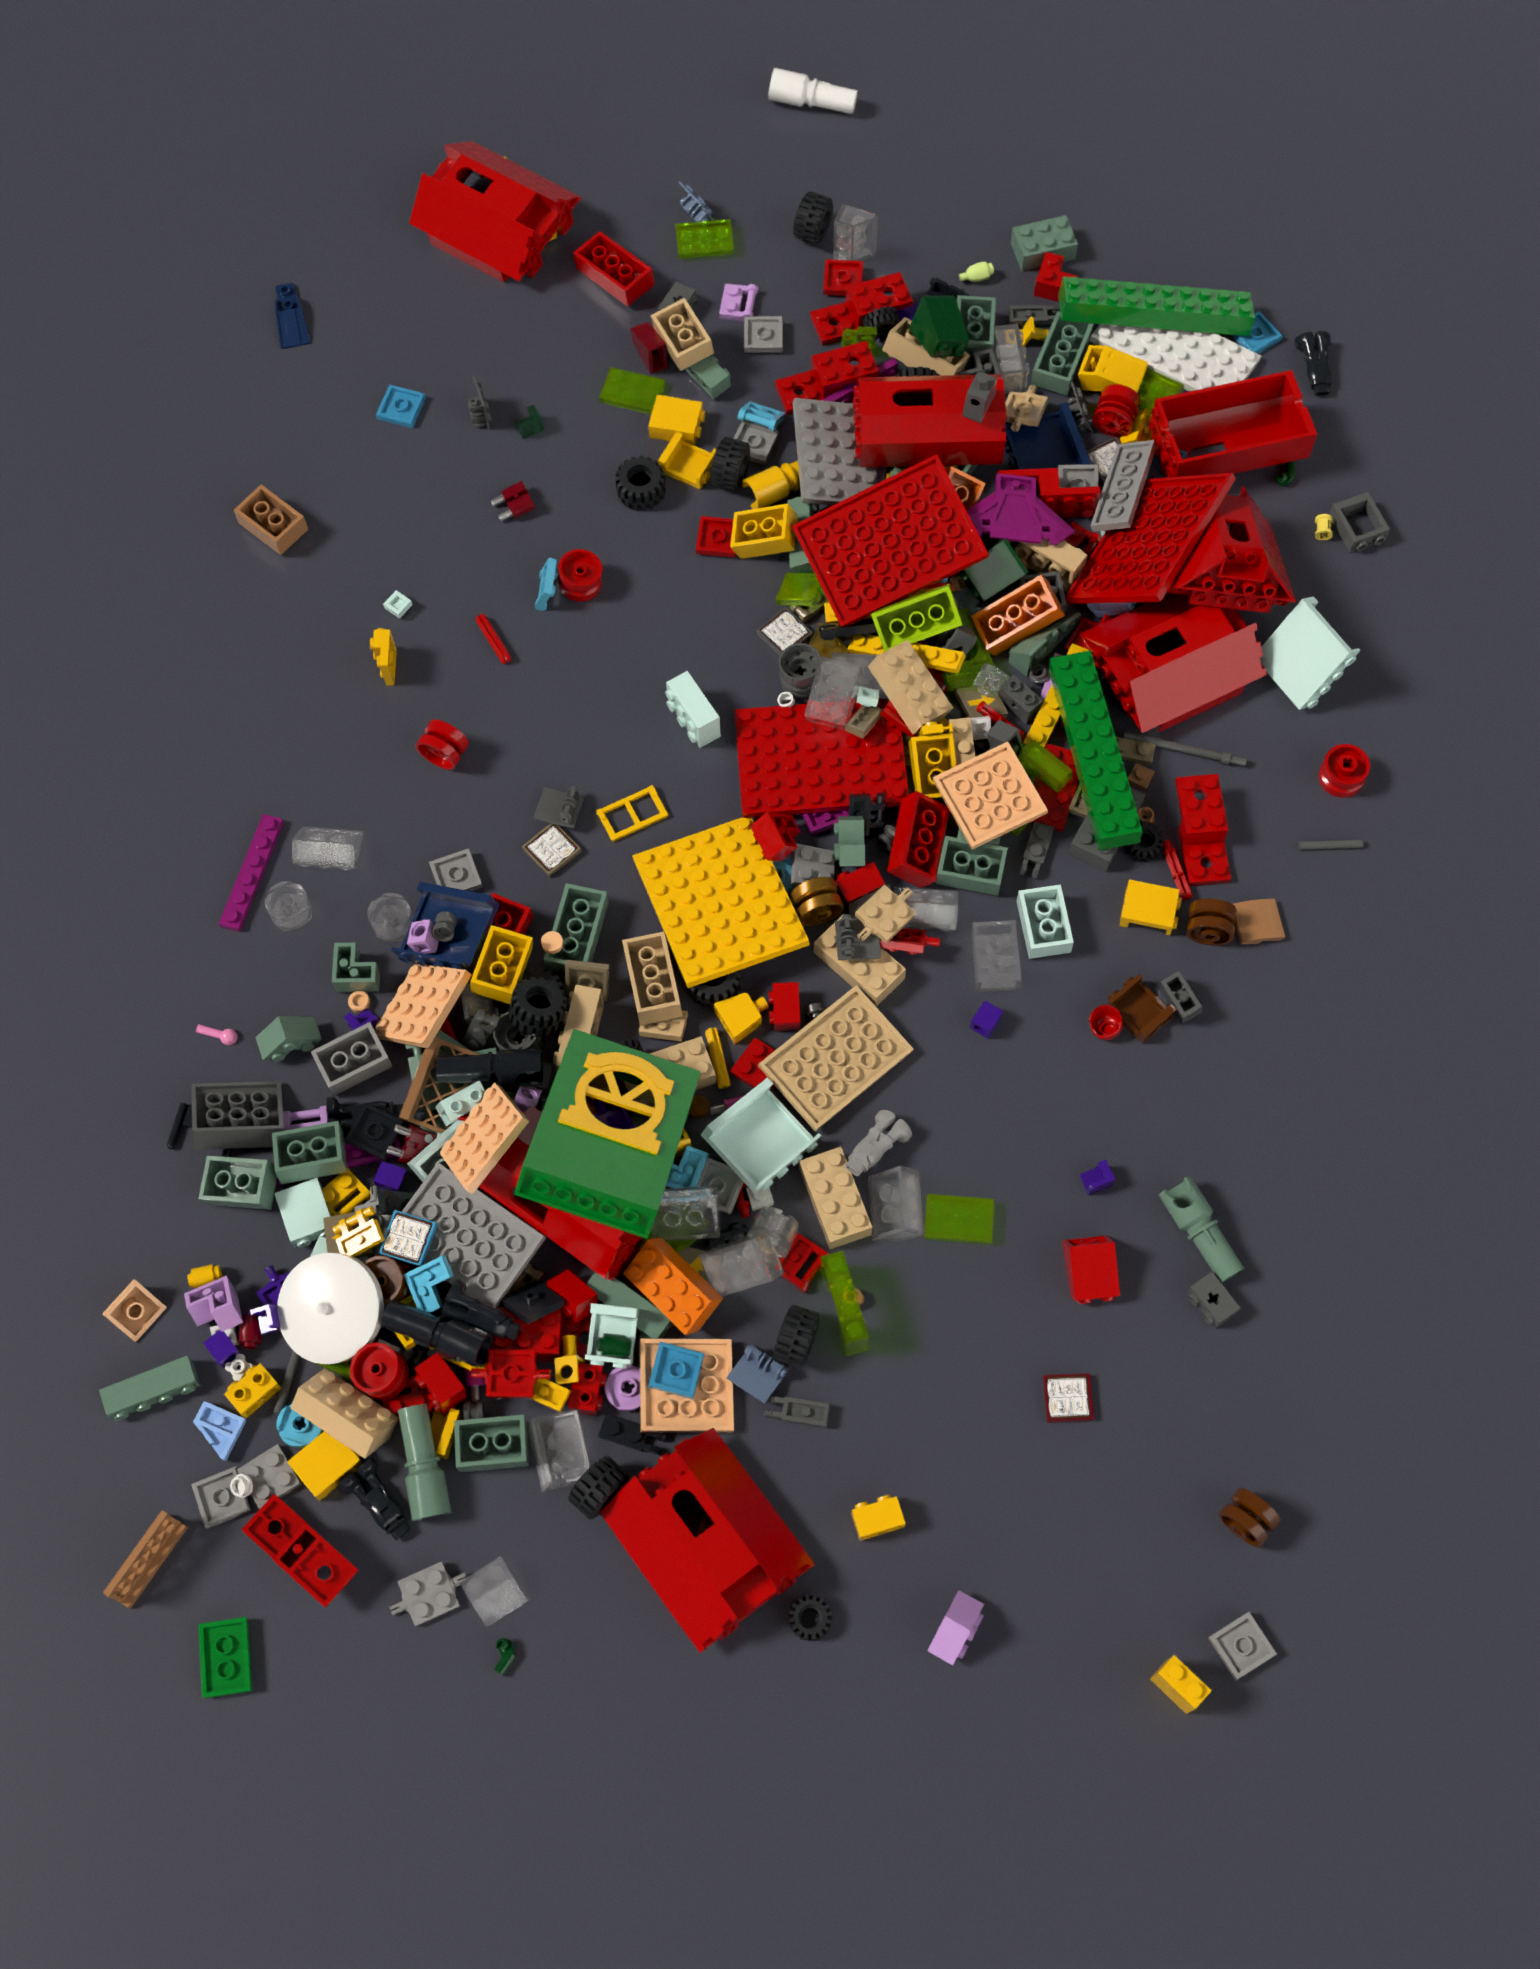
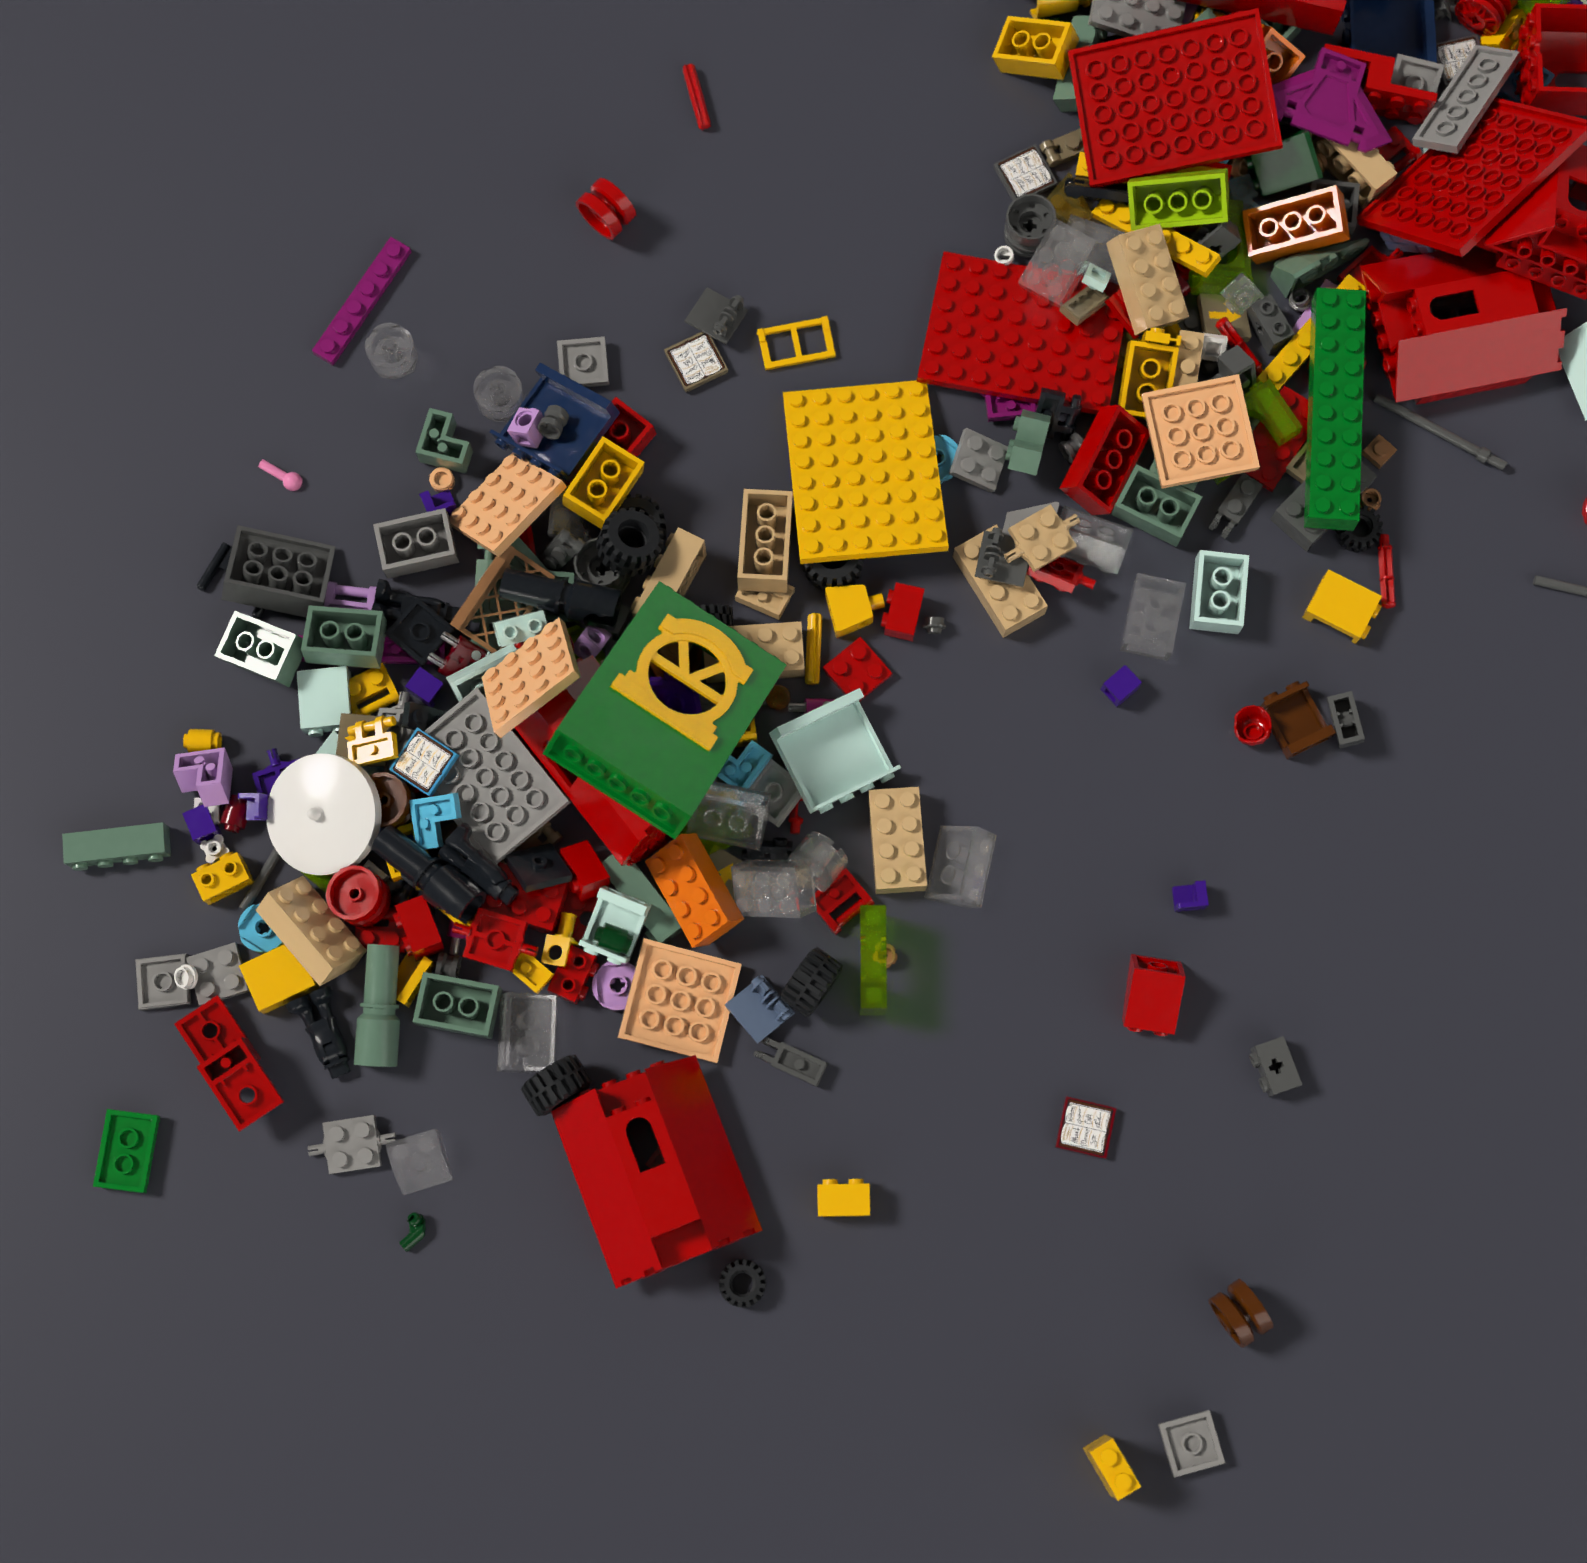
camera: 15 degrees right, 10 degrees up
(134, 1310) = (120, 757): light nougat slope -> none
(145, 1559) = (68, 1027): medium nougat fence -> none
(219, 1428) = (178, 908): light blue wing -> none
(287, 1034) = (354, 498): sand green brick -> none
(327, 847) = (451, 294): clear slope -> none
(385, 654) = (569, 84): yellow plate -> none
(397, 604) = (600, 28): light aqua plate -> none
(547, 589) = (776, 36): medium azure plate -> none
(552, 942) = (666, 471): light nougat tile -> none
(579, 924) = (697, 463): sand green brick -> none
(580, 575) = (813, 46): red wheel -> none
(587, 974) = (695, 520): dark tan tile -> none
(628, 1435) = (604, 1035): black hinge -> none
(676, 1370) = (672, 982): dark azure tile -> none
(692, 709) = (895, 240): light aqua brick -> none
(715, 537) = (978, 38): red plate -> none
(760, 1199) = (816, 820): white plate -> none
(776, 835) = (946, 413): red brick -> none
(799, 589) = (1055, 128): clear neon green plate -> none
(817, 901) = (971, 501): pearl gold wheel -> none
(835, 1058) = (942, 684): tan plate -> none
(859, 882) = (1024, 492): red brick -> none
(876, 1143) = (958, 793): light grey piece -> none
(957, 1626) = (893, 1339): lavender brick -> none
(959, 1219) = (1025, 900): clear neon green plate -> none
(1136, 751) = (1382, 419): dark tan plate -> none
(1193, 1215) = (1283, 968): sand green piece -> none
(1203, 829) = (1430, 533): red bracket -> none
(1211, 921) = (1406, 643): reddish brown wheel -> none
(1258, 921) = (1459, 655): medium nougat slope -> none

